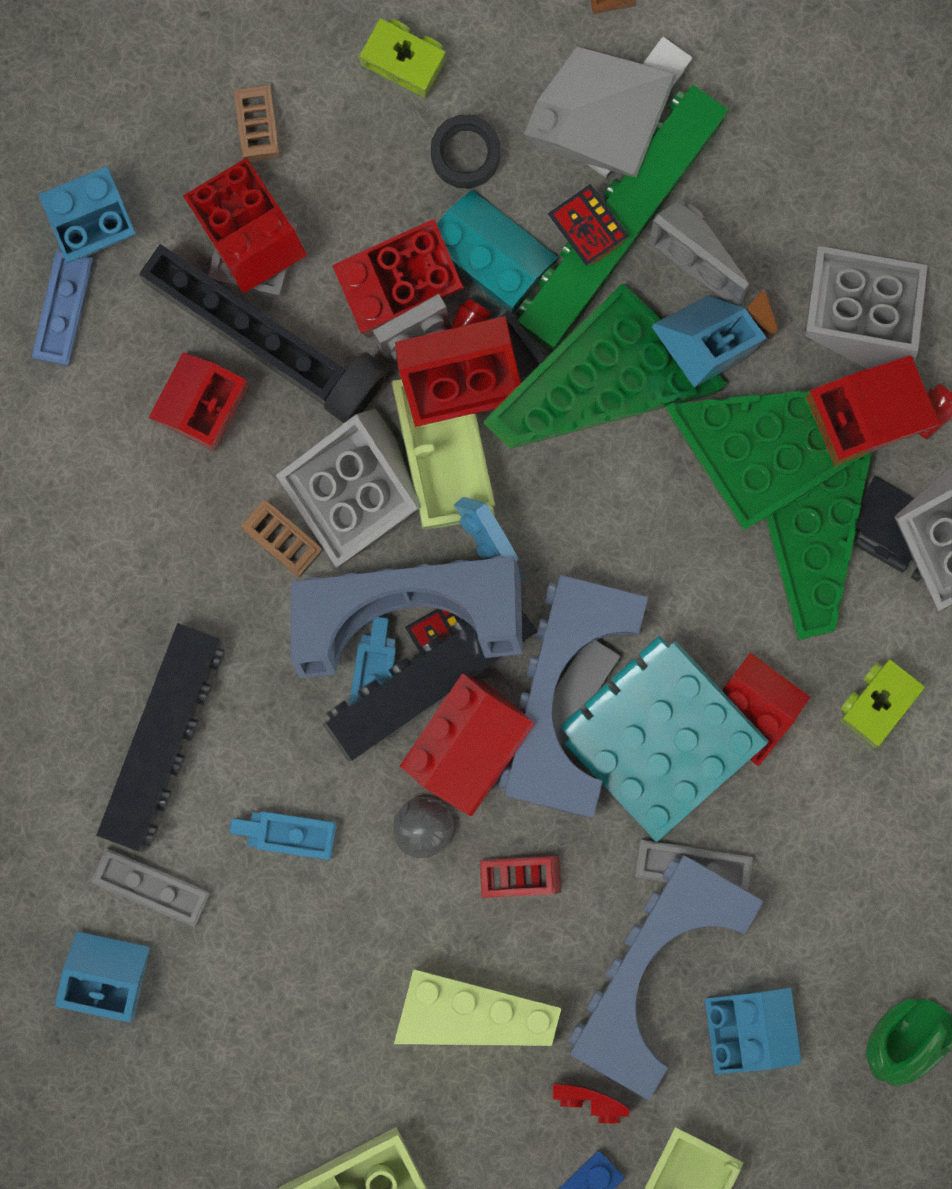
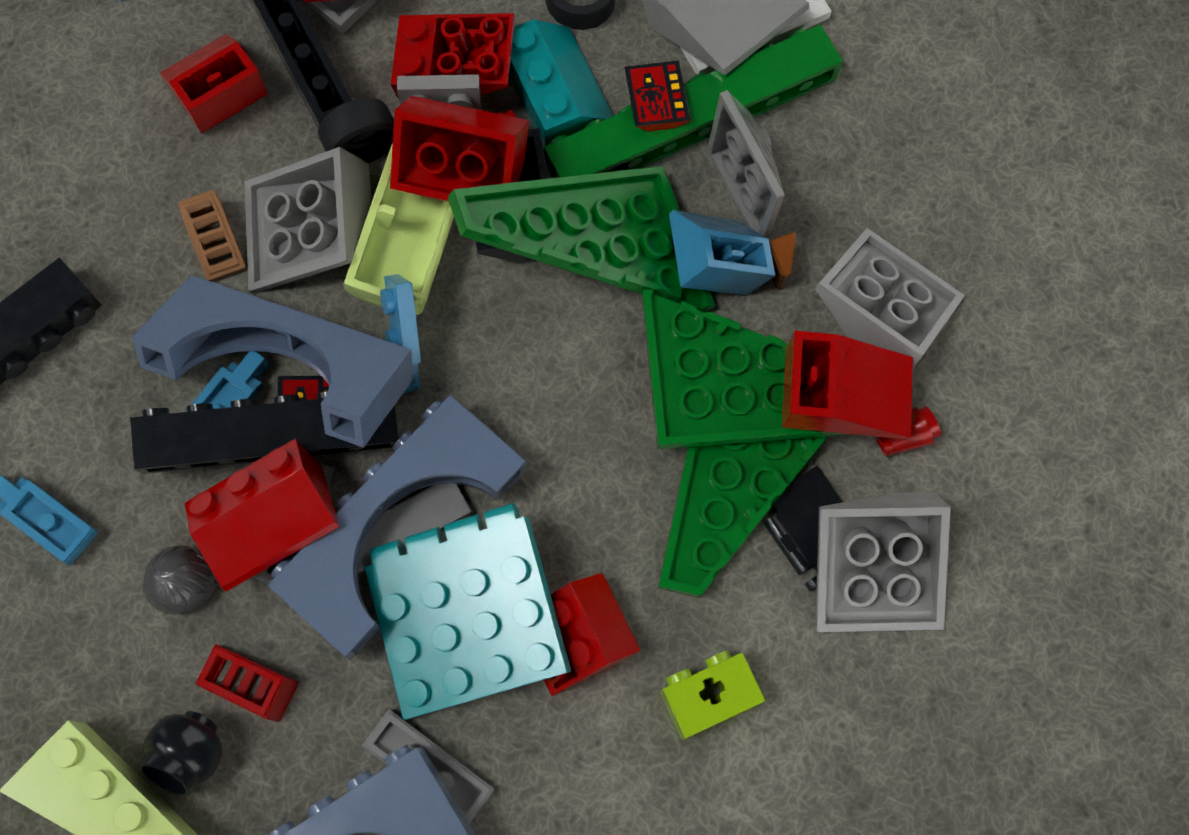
camera: 20 degrees right, 10 degrees down
(507, 950) = (181, 752): none -> black piece

